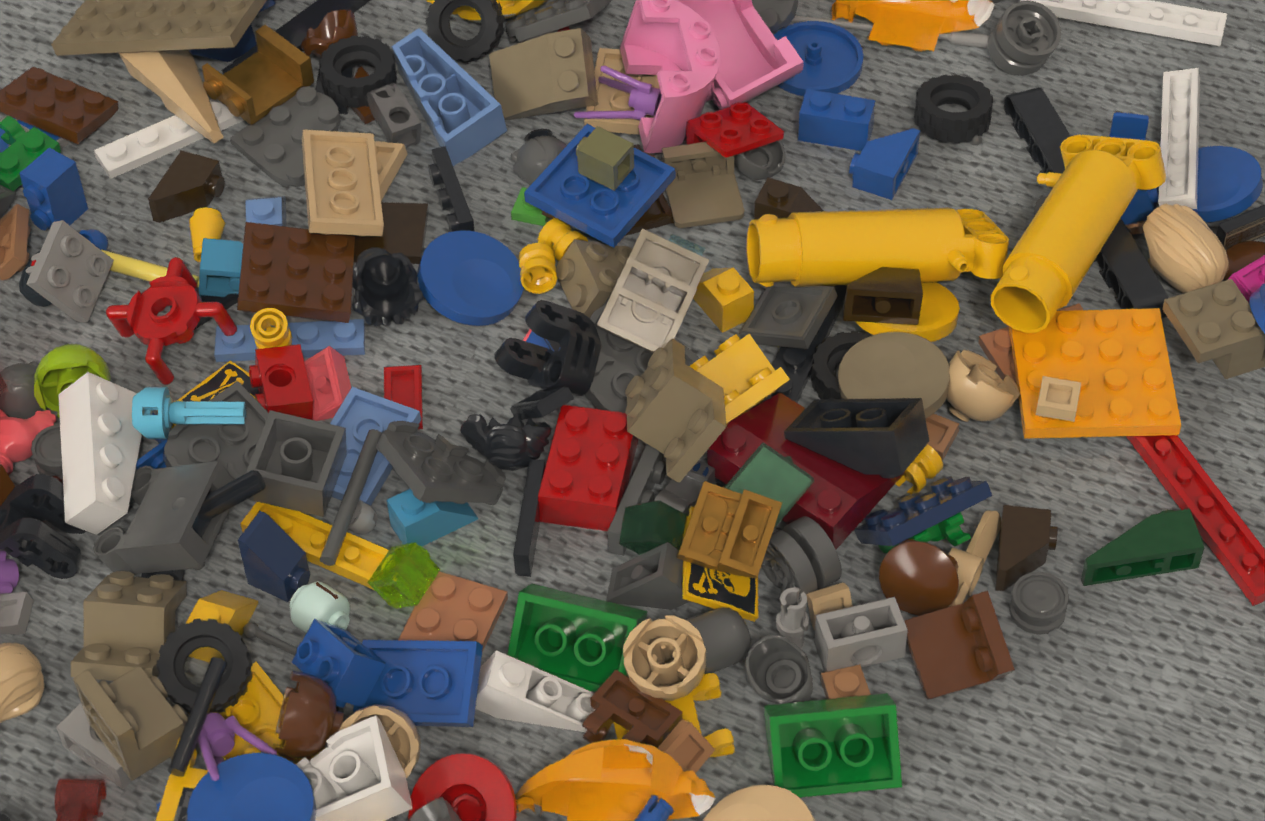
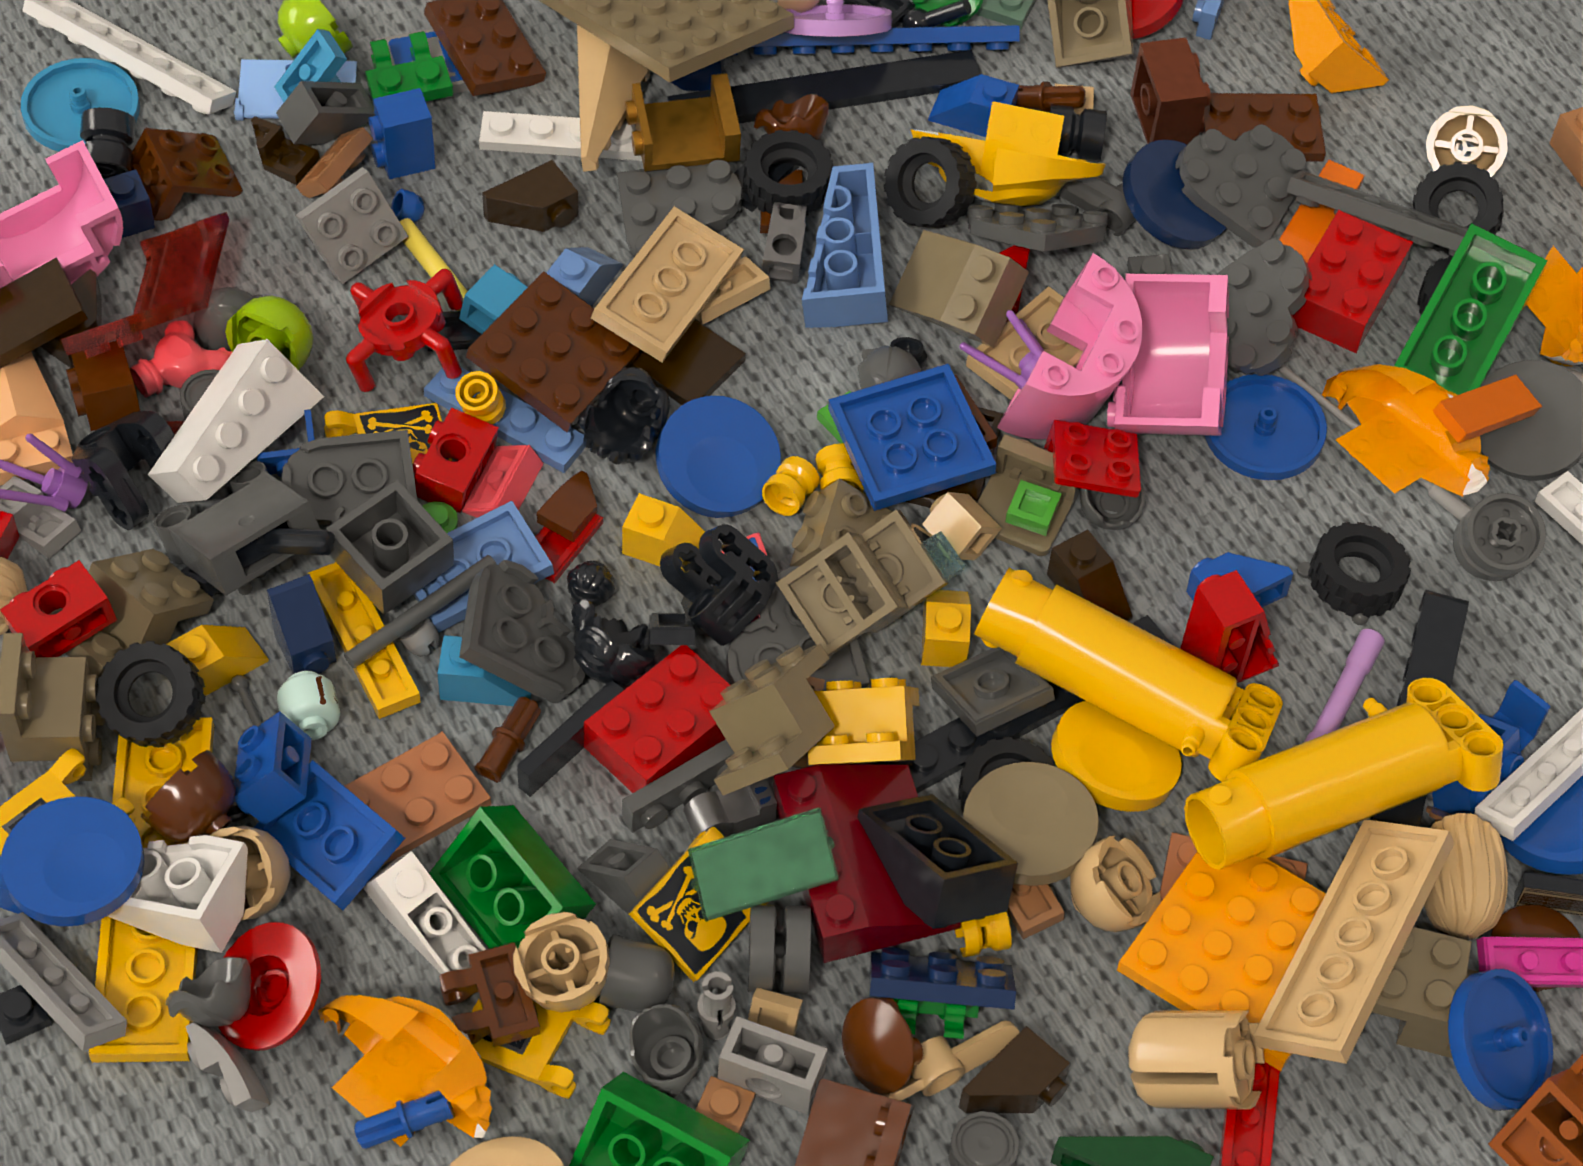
camera: 30 degrees right, 5 degrees up
(89, 625) = (84, 612): none -> red brick
(180, 412) = (313, 423): medium azure piece -> none
(197, 717) = (97, 739): black bar -> none
(205, 224) = (519, 253): yellow cone -> none
(218, 740) = (111, 767): medium lavender plant -> none
(394, 371) = (569, 507): none -> reddish brown slope
(404, 575) = (407, 720): clear neon green brick -> none
(450, 194) = (773, 358): black plate -> none
(451, 411) = (591, 582): none -> black piece
(472, 349) = (656, 527): none -> yellow slope
(485, 546) = (508, 739): none -> reddish brown axle
(605, 158) = (927, 412): olive brick -> none
(651, 526) = (662, 825): clear green brick -> none
(676, 221) = (962, 523): none -> tan brick
(687, 746) = (511, 1065): medium nougat plate -> none
(715, 187) = (1033, 507): none -> bright green plate
(729, 530) = (718, 875): pearl gold slope -> none
(836, 120) = (1223, 508): blue brick -> none
(885, 297) = (1088, 731): dark brown slope -> none
(915, 175) = (1229, 628): none -> red wedge
(1002, 169) = (1357, 667): none -> lavender piece
(1058, 398) = (1169, 952): tan plate -> none
(1128, 456) = (1195, 1059): none -> tan cylinder
(1167, 319) = (1354, 941): none -> tan plate

